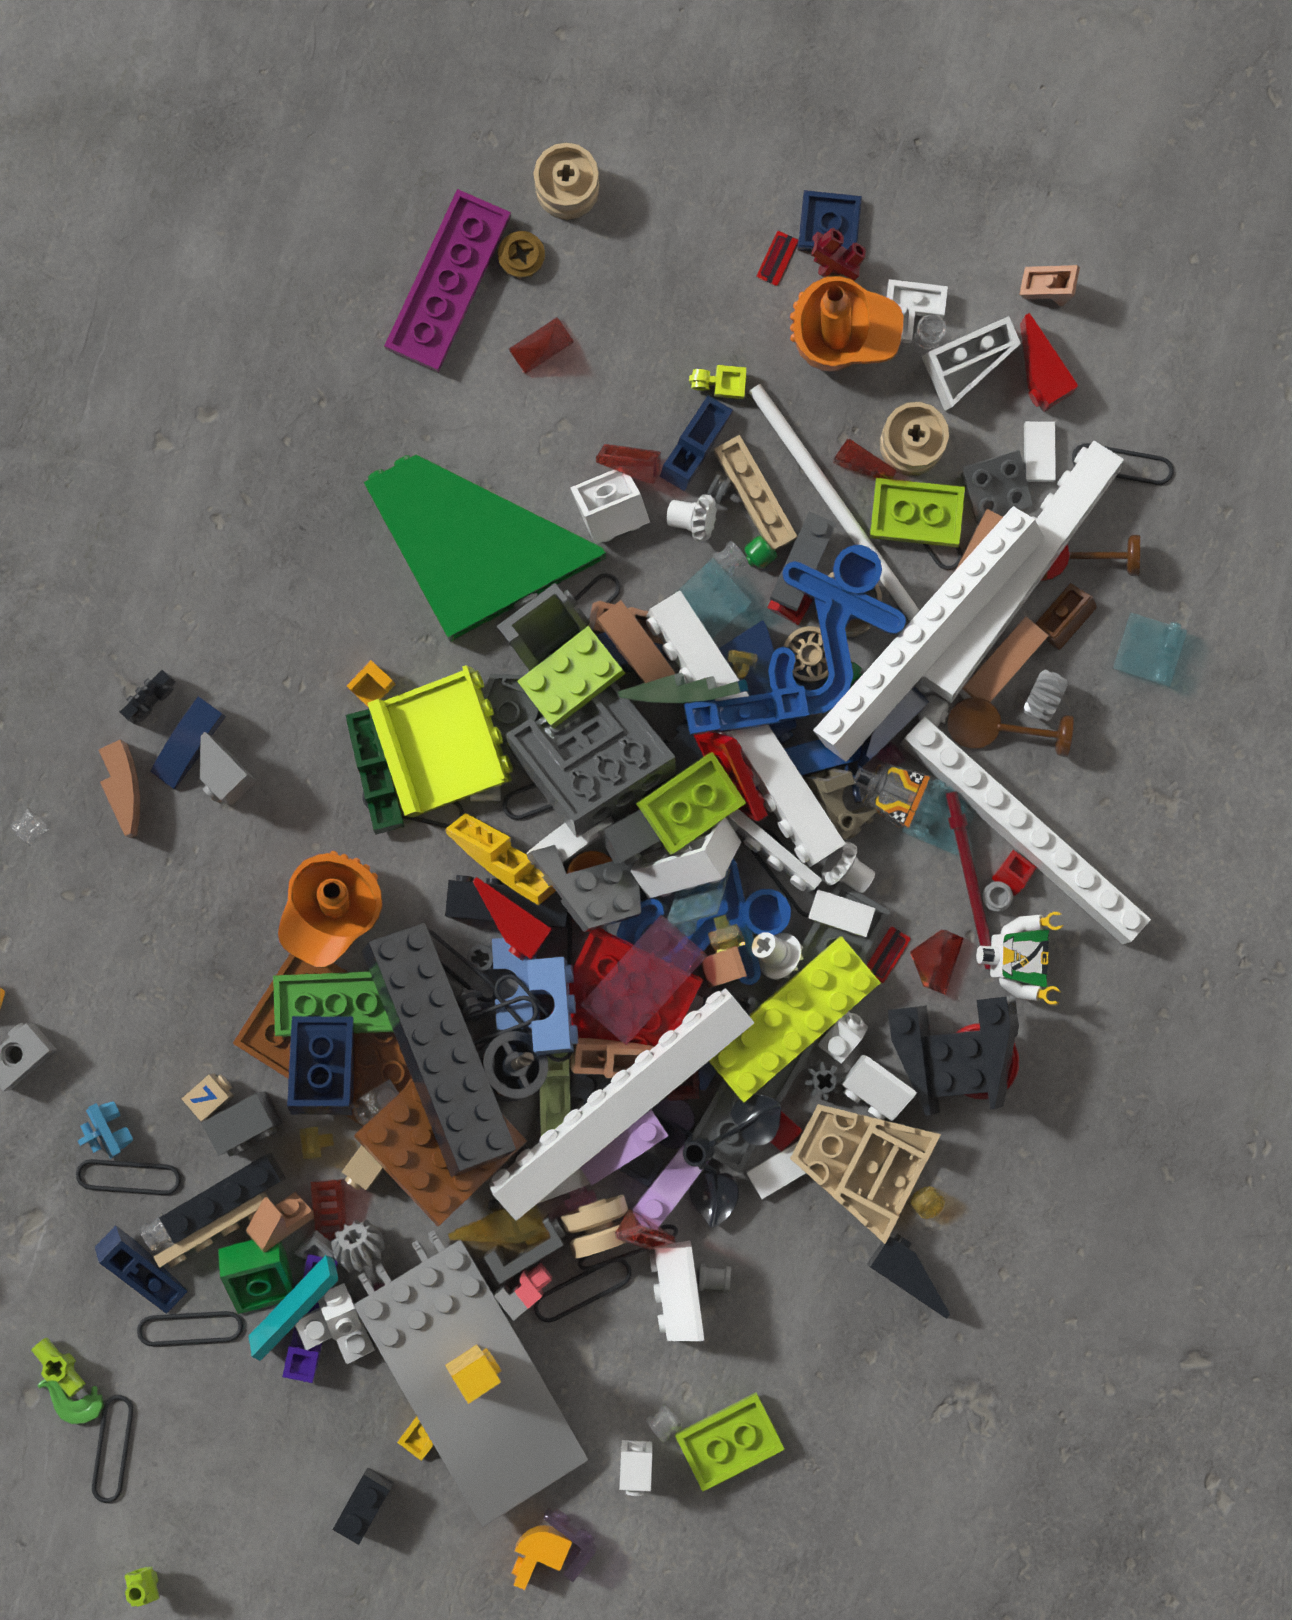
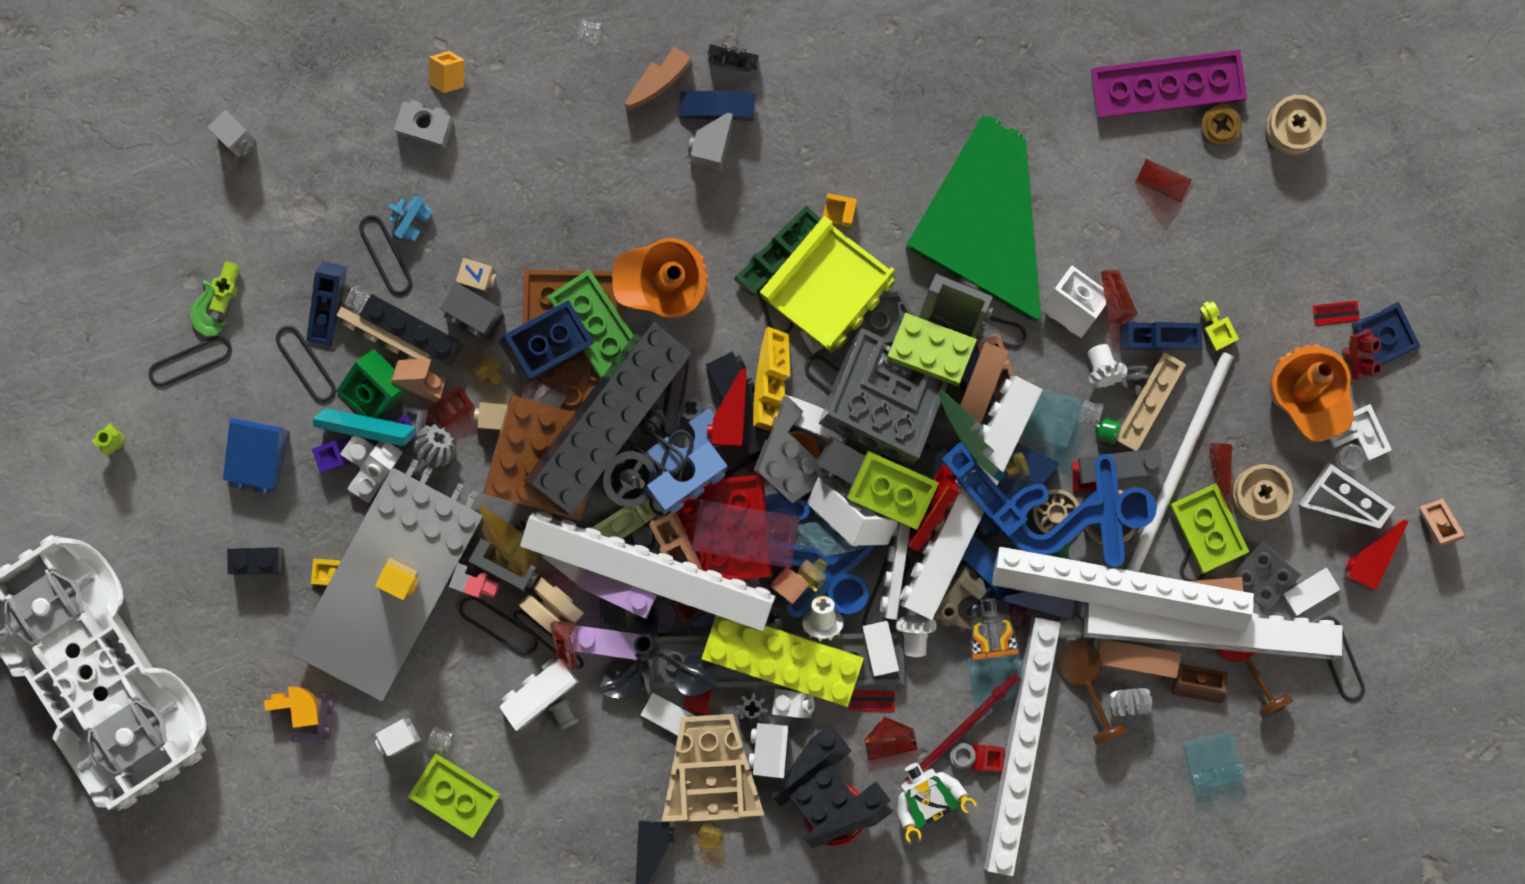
camera: 60 degrees right, 0 degrees up
(252, 1441) = (254, 455): none -> blue slope

